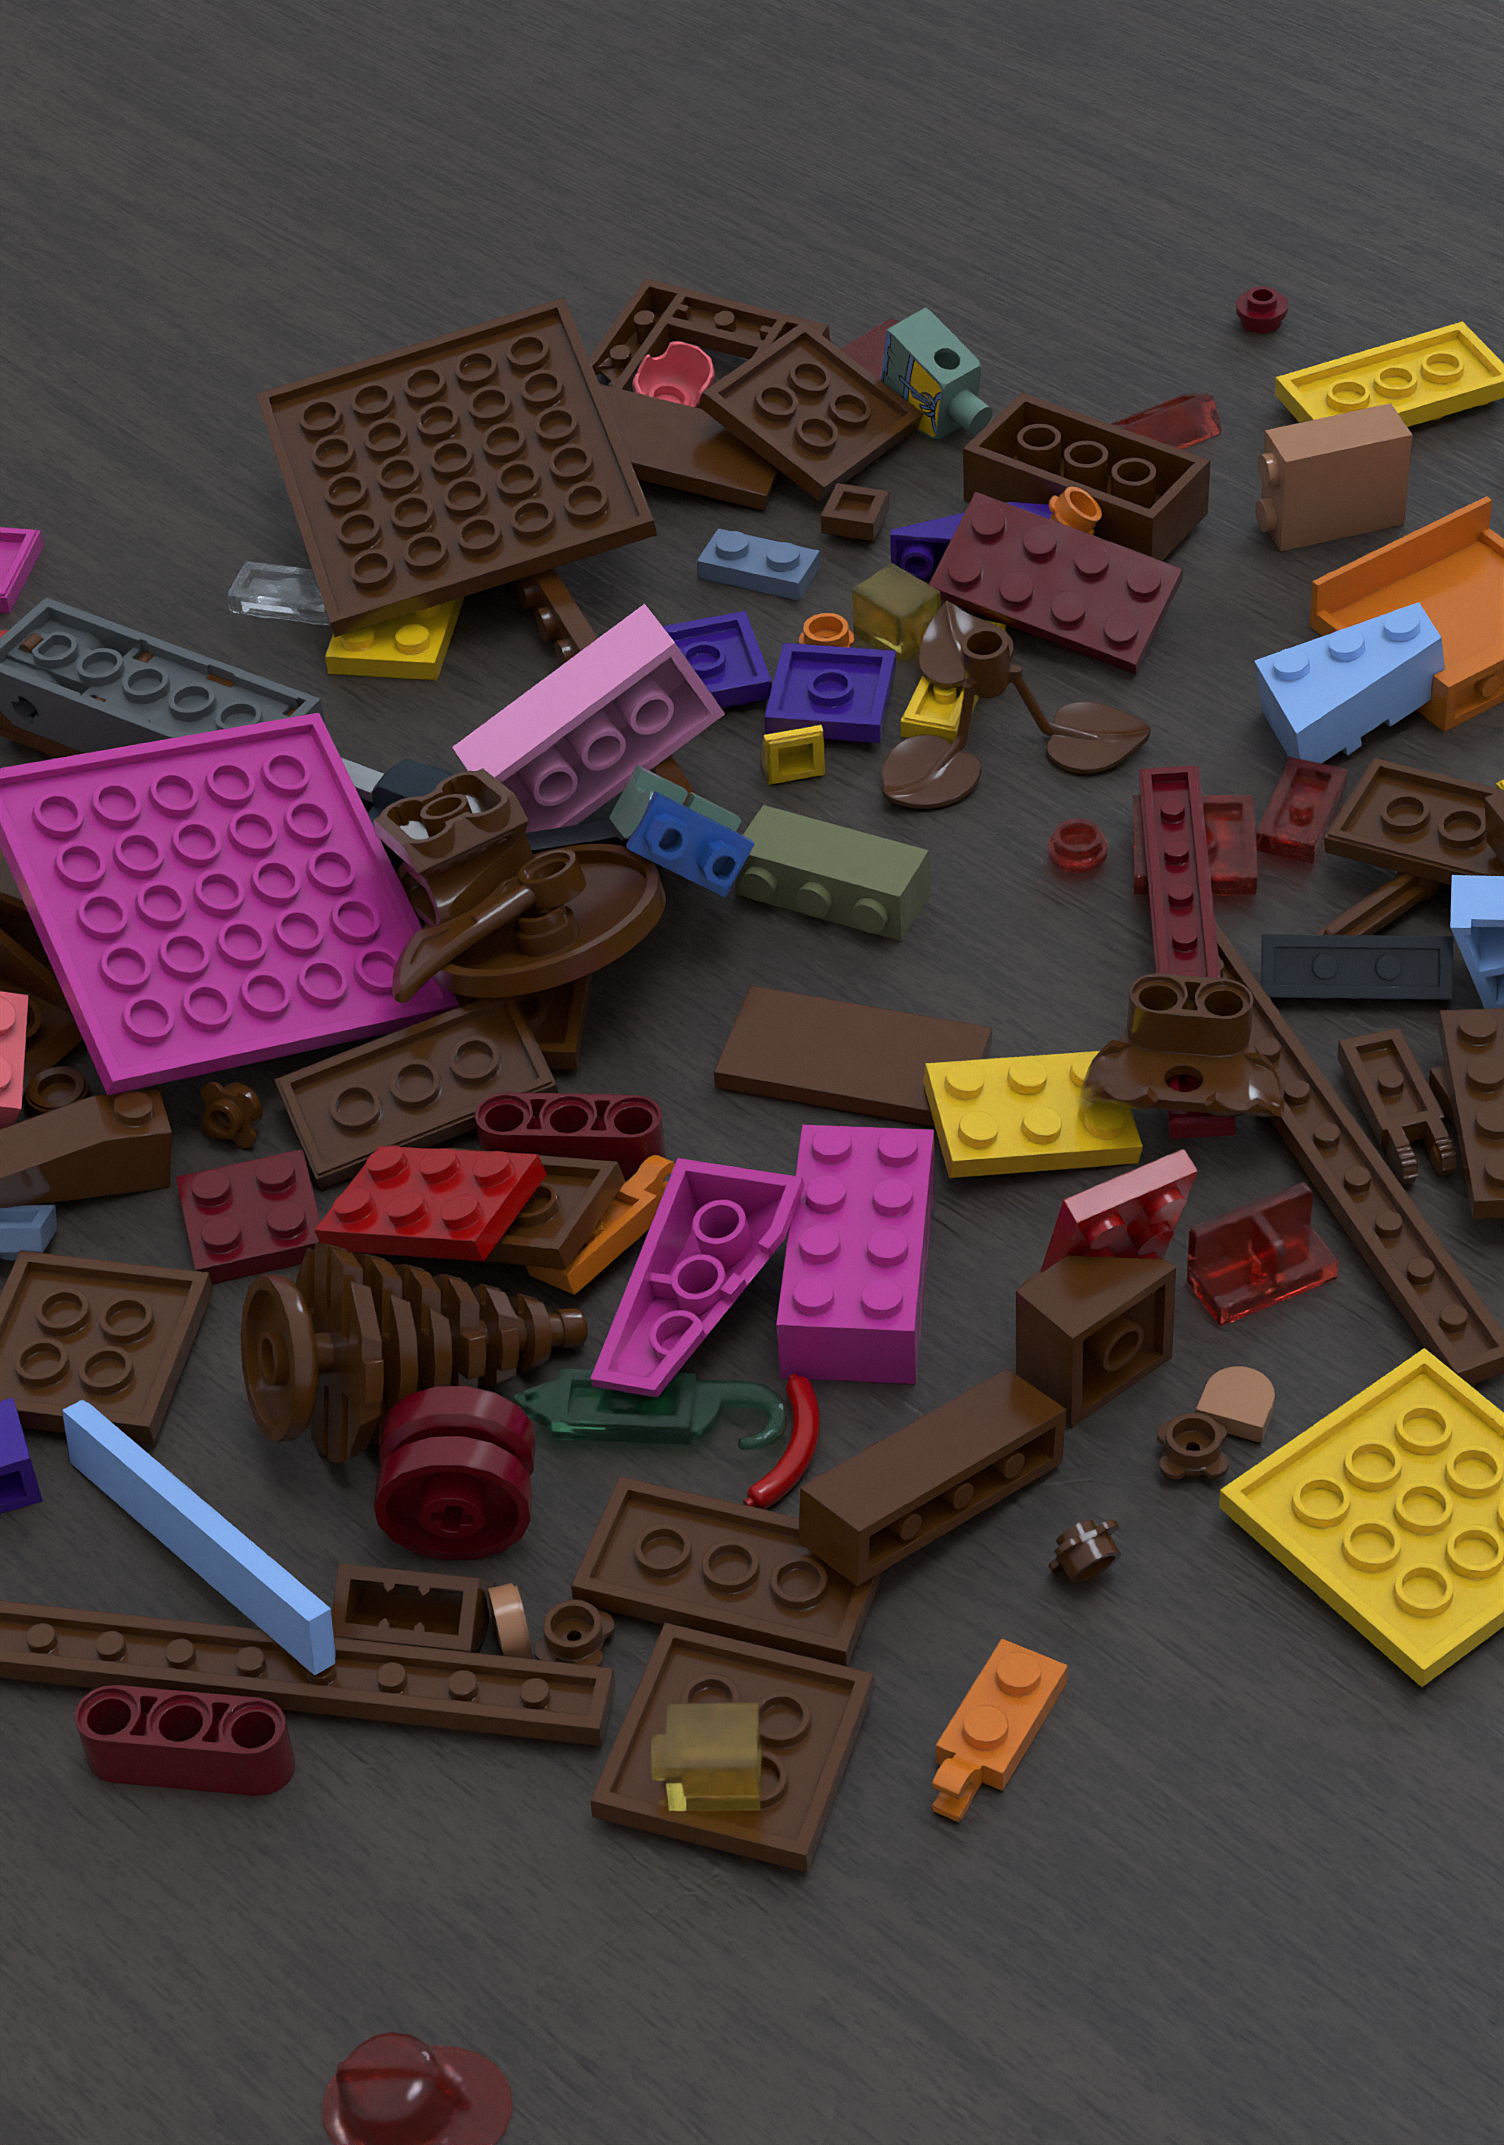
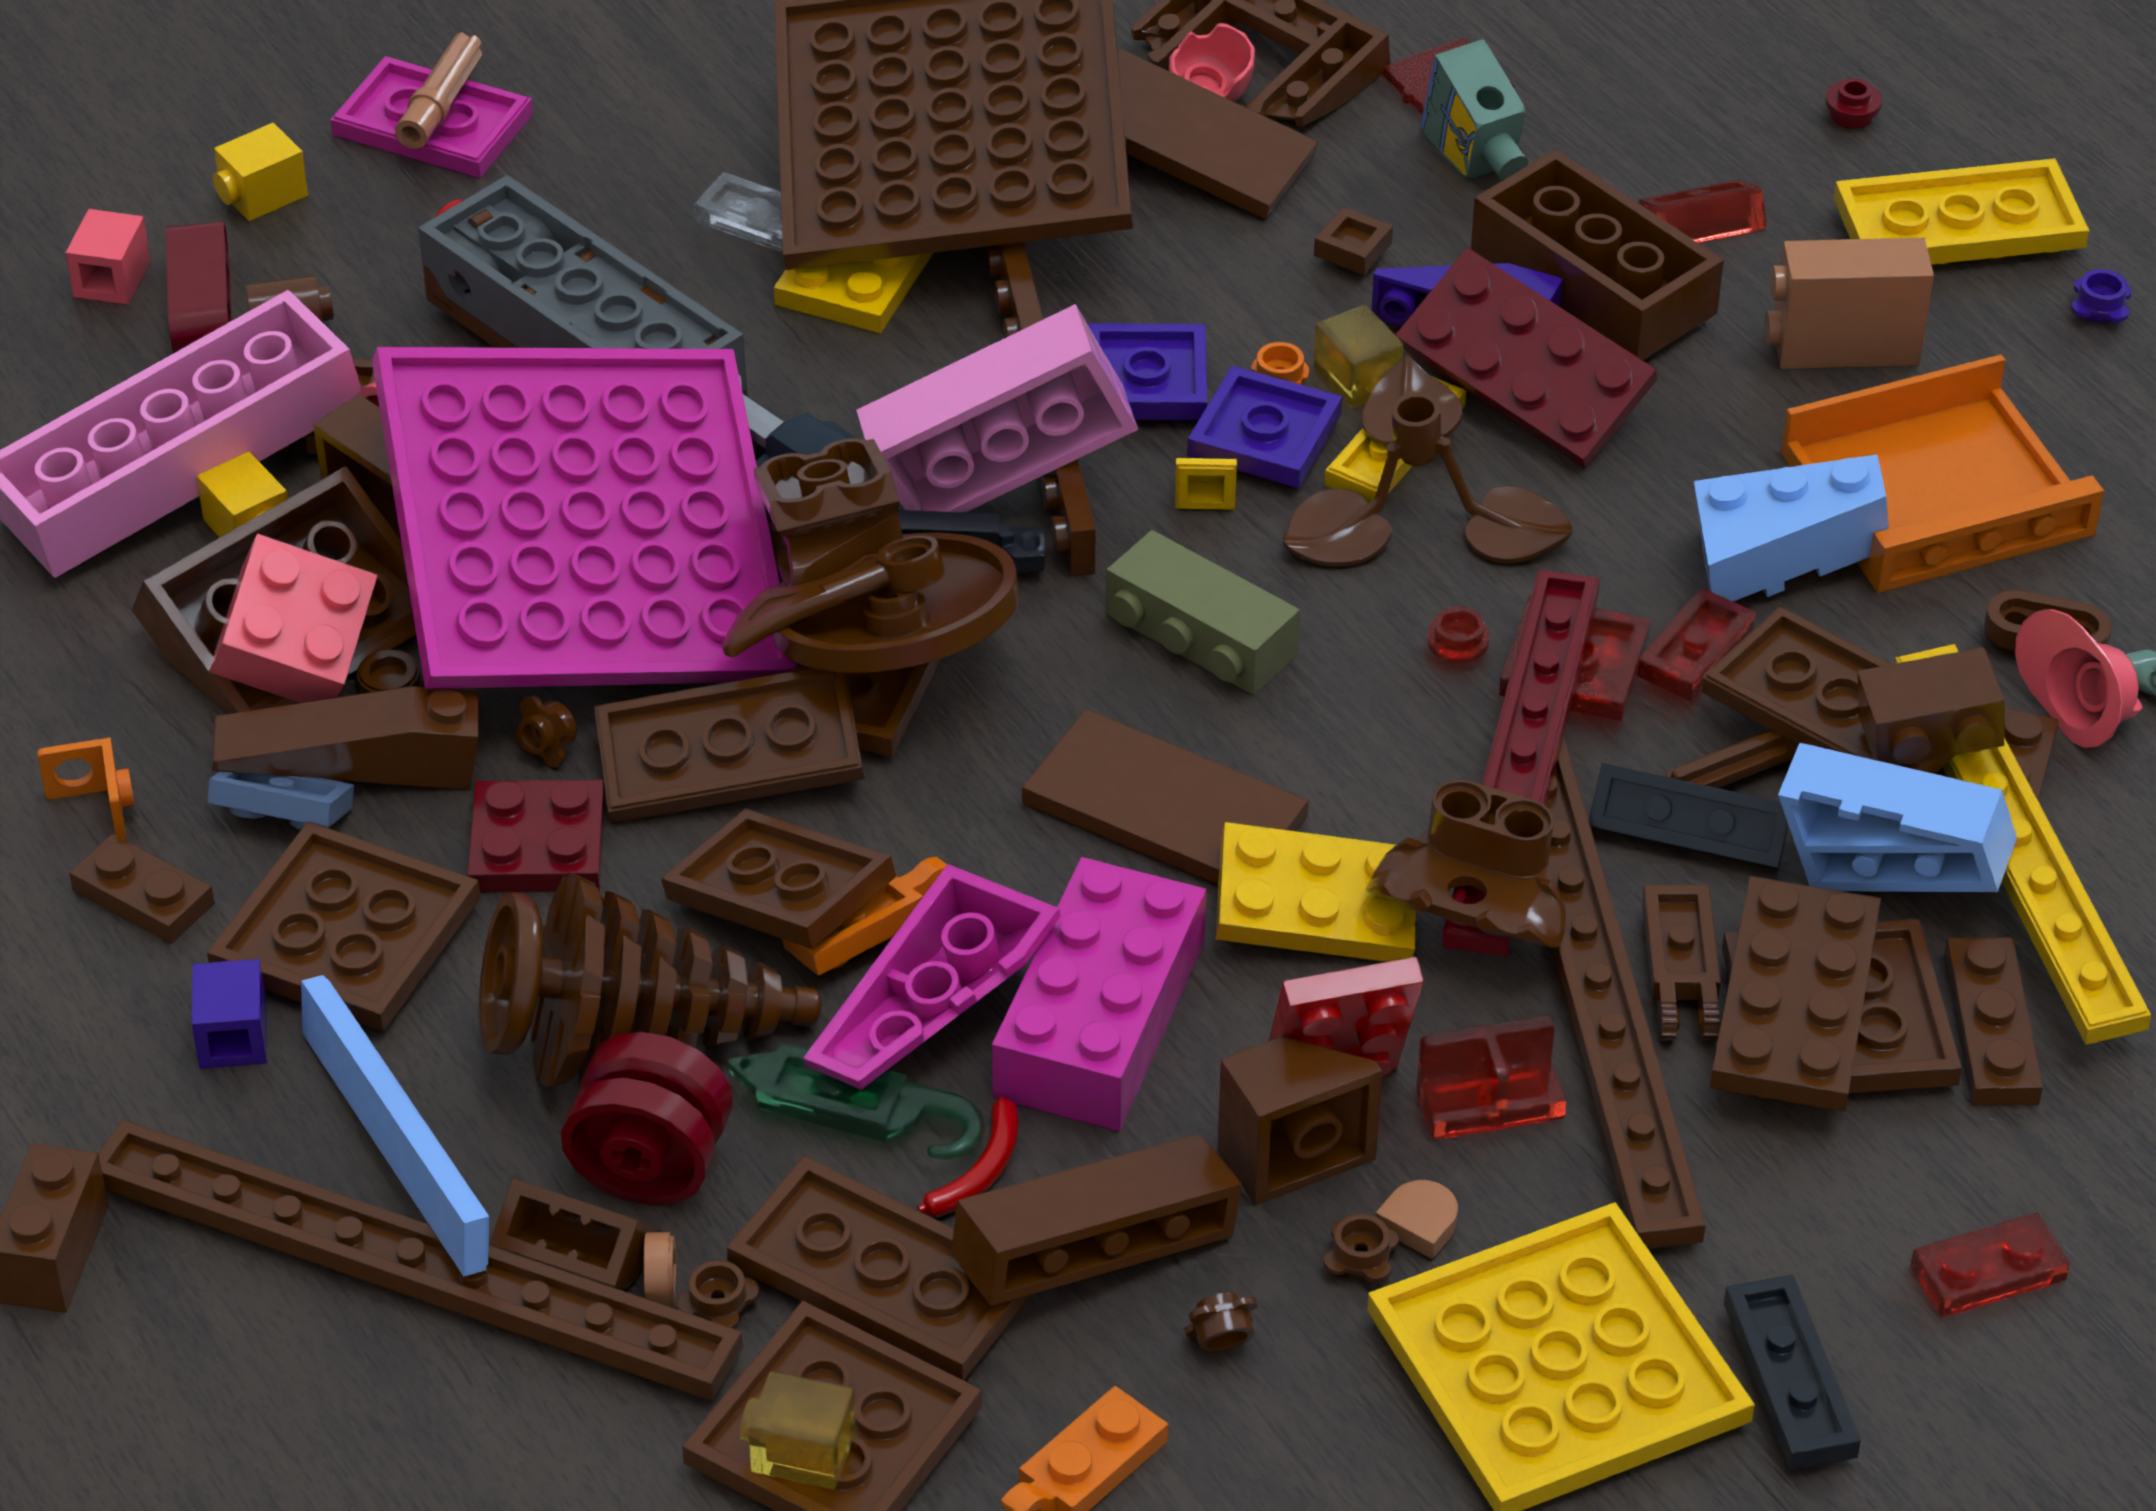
camera: 10 degrees right, 0 degrees up
(141, 1733) = (331, 1310): dark red beam -> none
(431, 1202) = (704, 857): red plate -> none
(573, 1126) = (866, 813): dark red beam -> none
(686, 839) = (1064, 558): blue hips -> none
(758, 564) = (1239, 276): sand blue plate -> none
(810, 410) = (1340, 124): reddish brown plate -> none
(1075, 509) = (1567, 287): orange plate -> none

